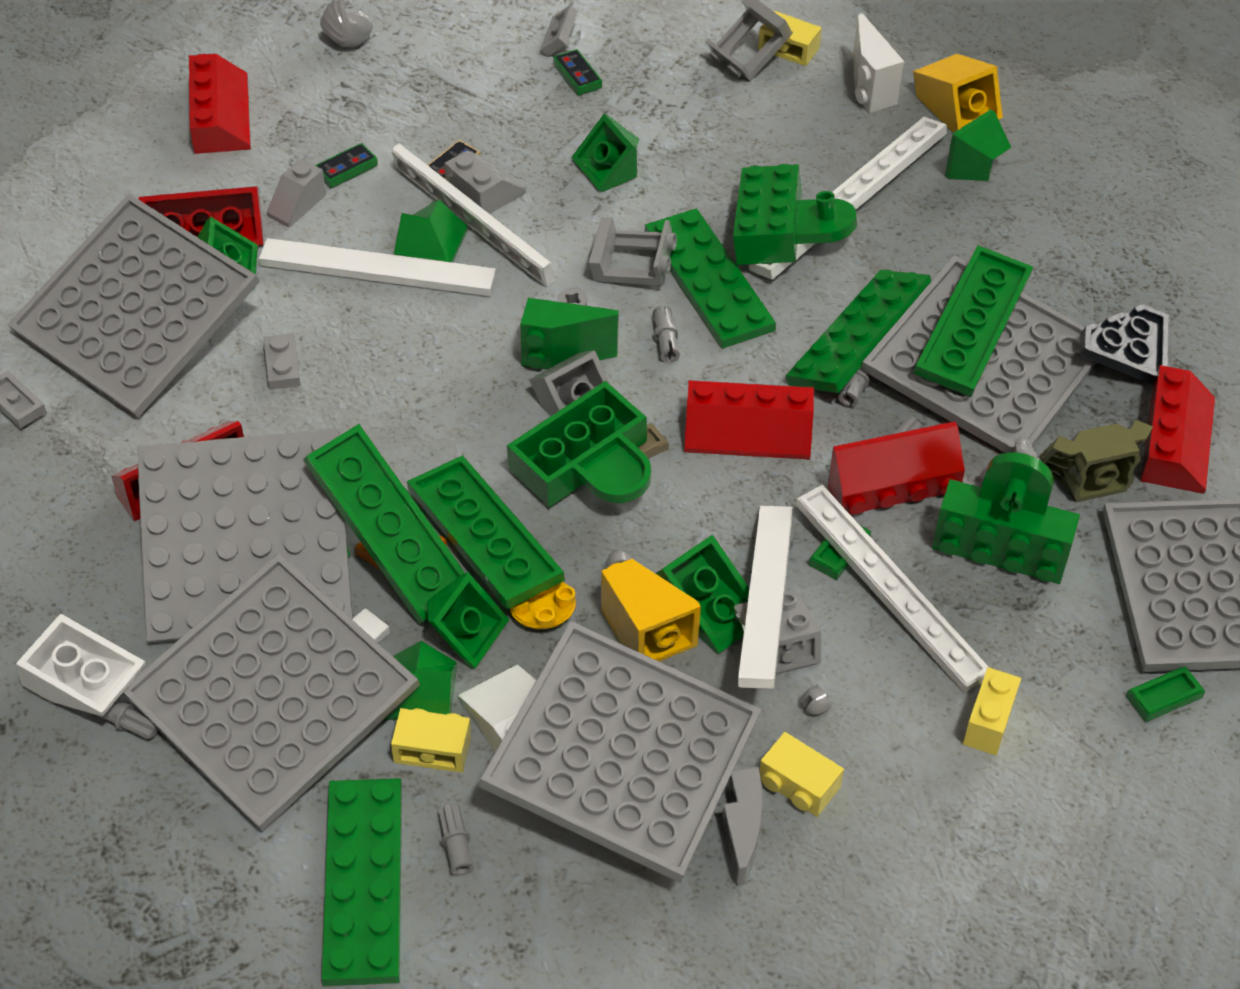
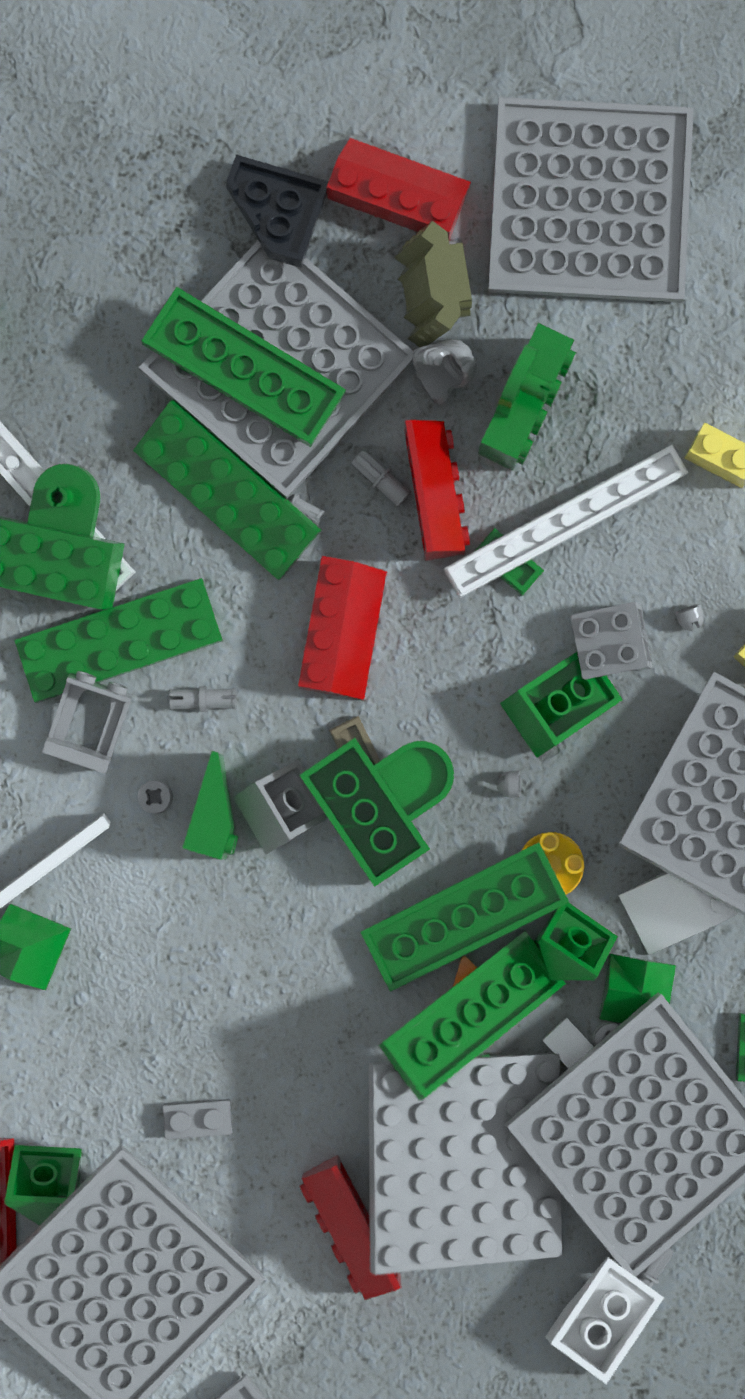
camera: 80 degrees left, 35 degrees up
(378, 267) = (65, 1010): white tile -> none
(431, 740) = (703, 983): light yellow brick -> none
(648, 611) = (592, 767): yellow slope -> none
(766, 598) = (586, 646): white tile -> none
(1165, 694) = (708, 288): green tile -> none

